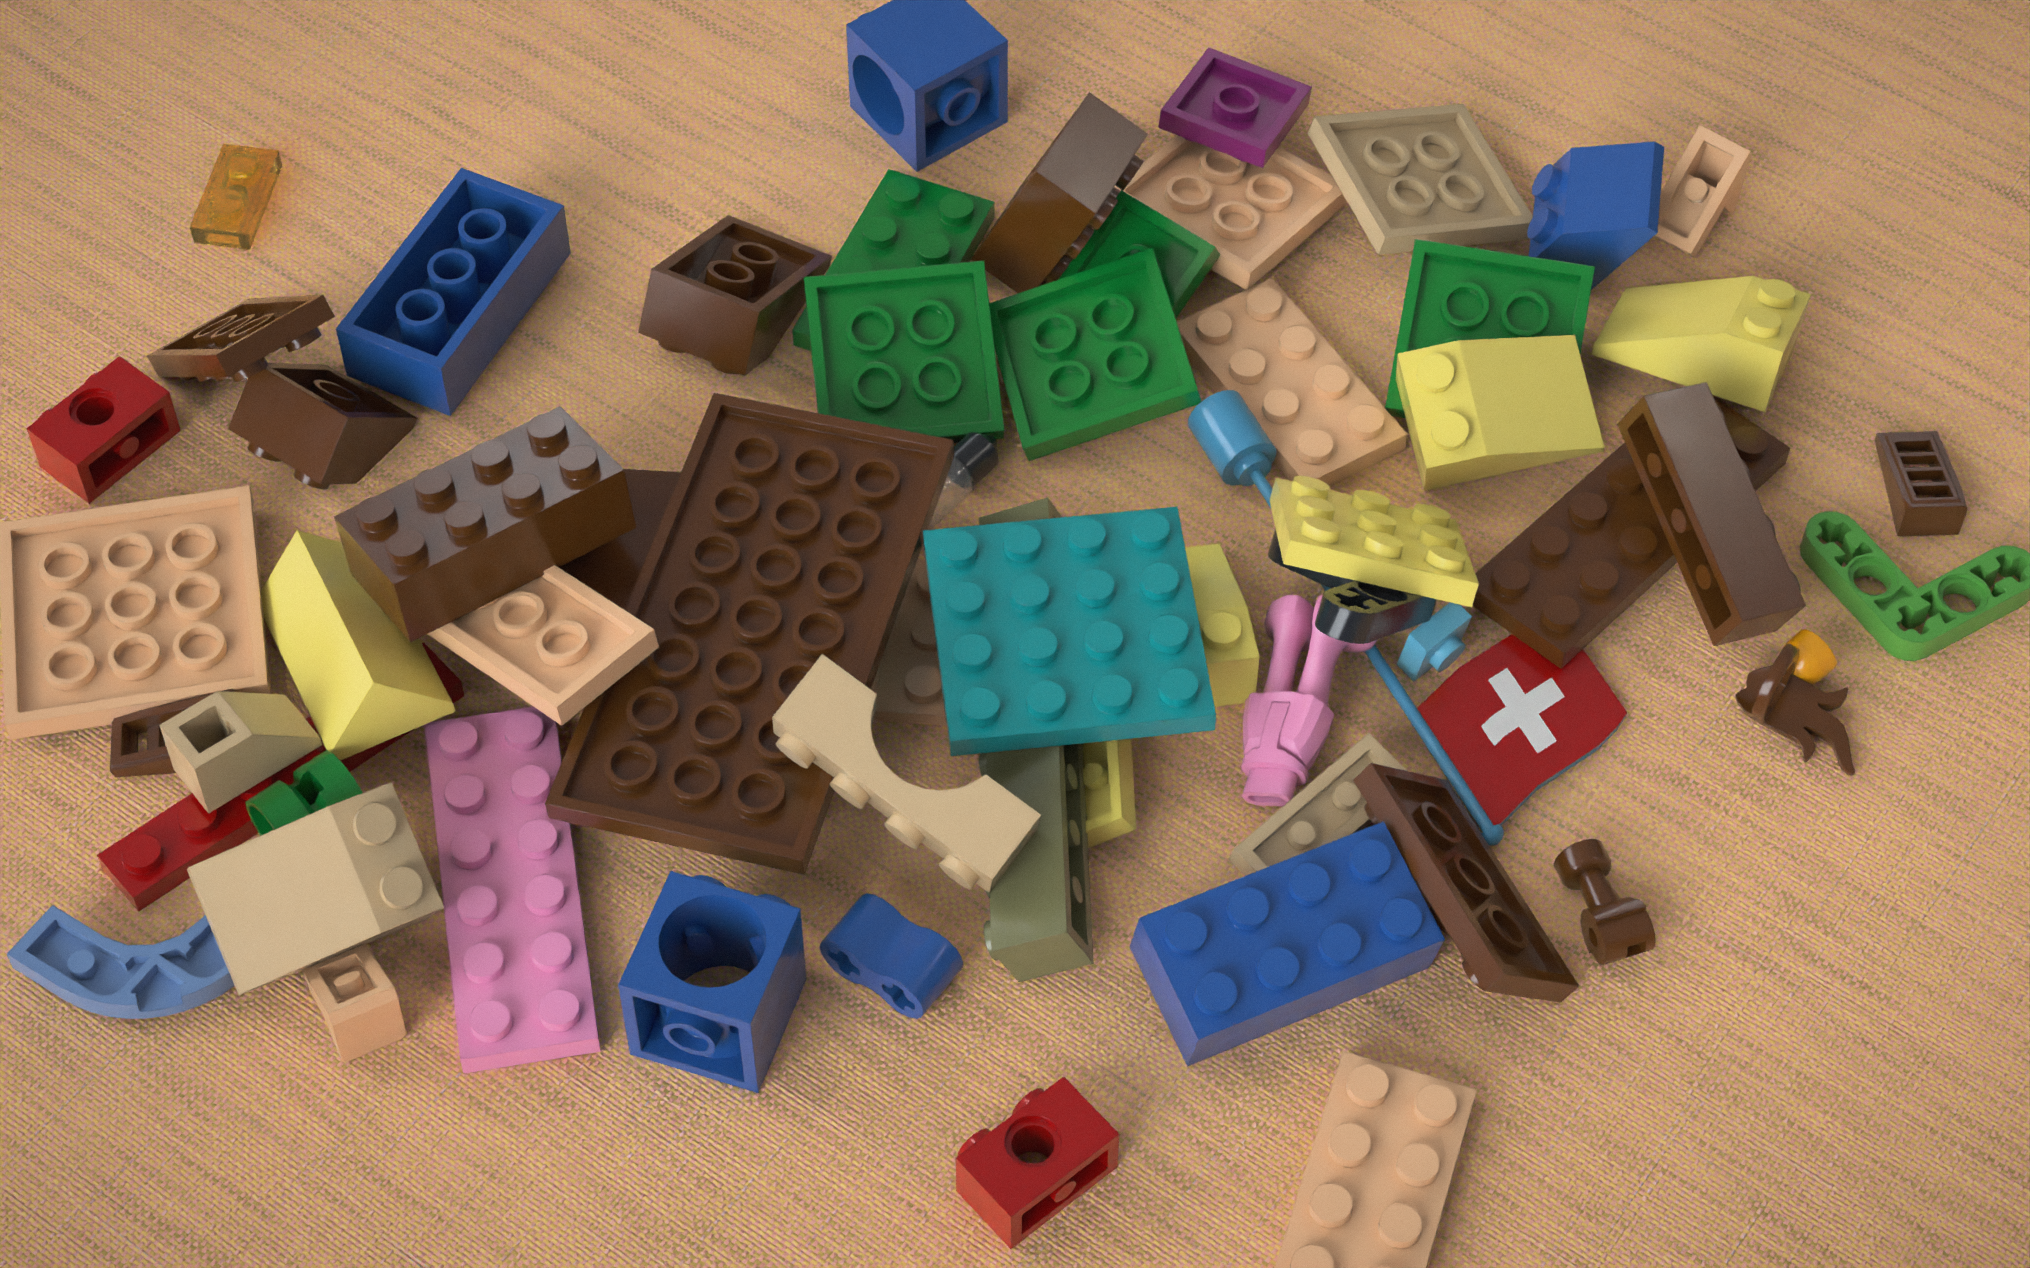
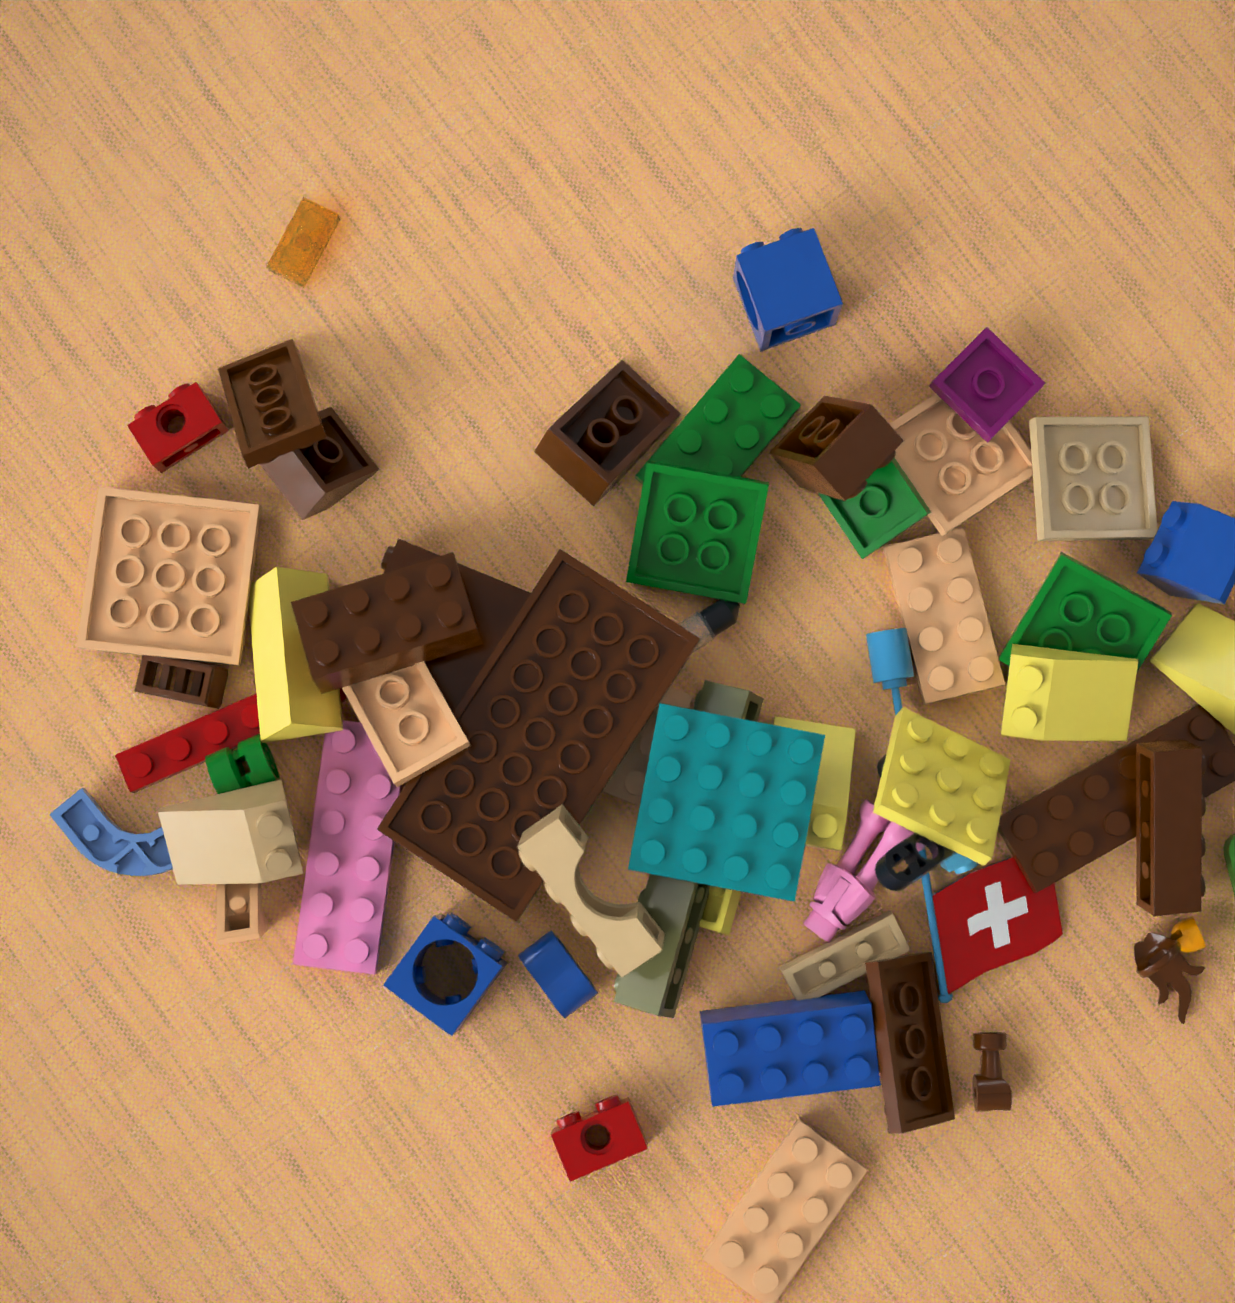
camera: 25 degrees right, 30 degrees up
(235, 743) = (208, 721): tan slope -> none
(454, 291) = (423, 384): blue brick -> none
(1091, 354) = (820, 565): green plate -> none

